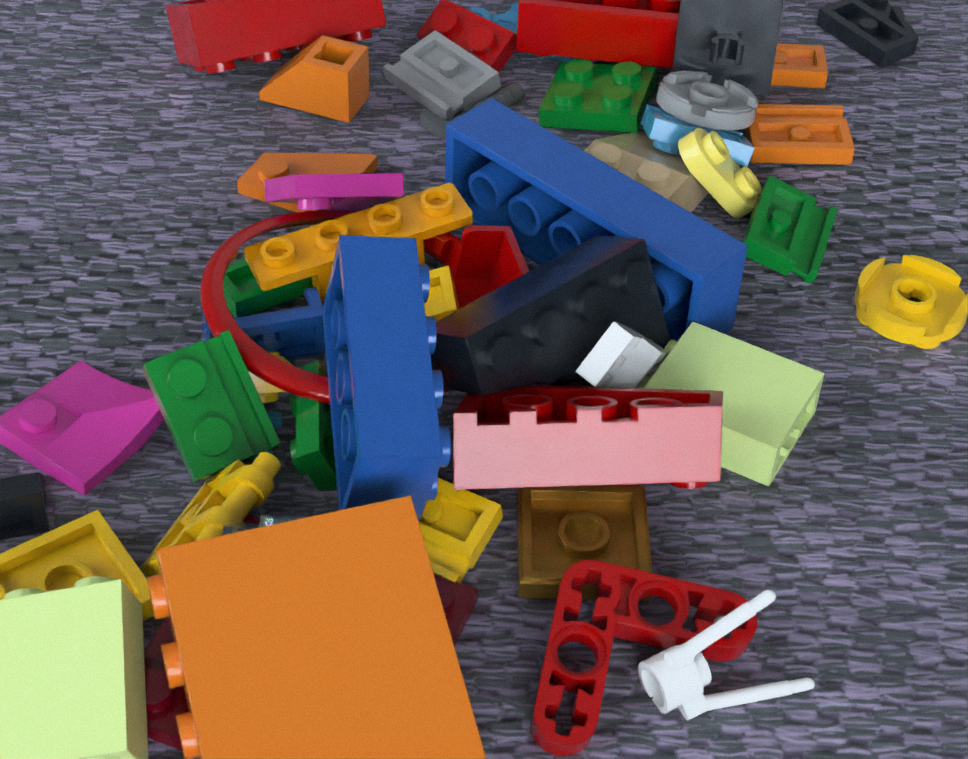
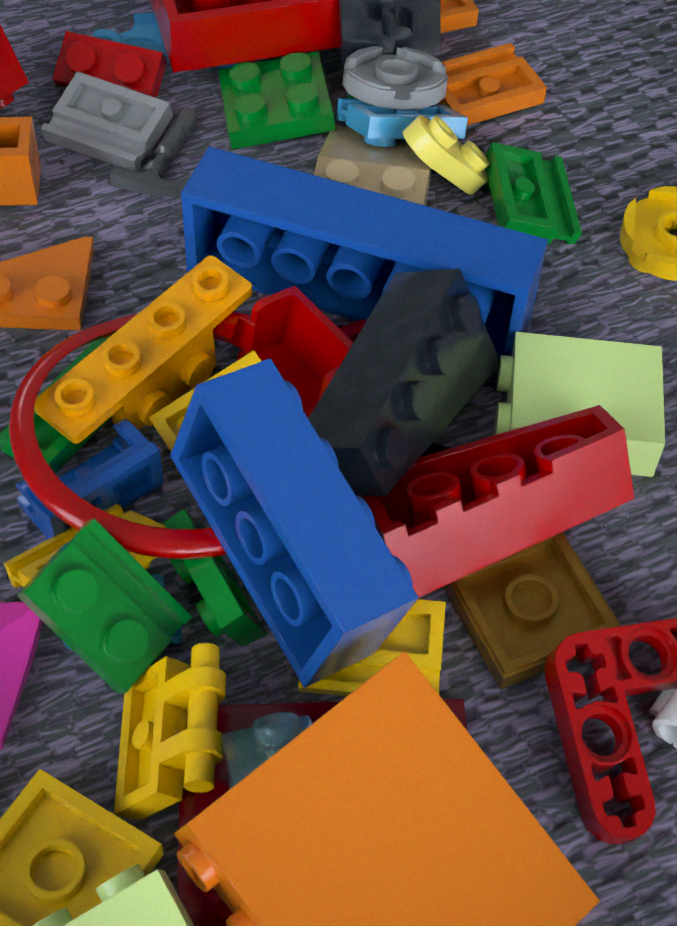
camera: 25 degrees left, 10 degrees up
(335, 191) = (86, 310): dark pink plate -> none
(621, 358) = (486, 404): white slope -> none

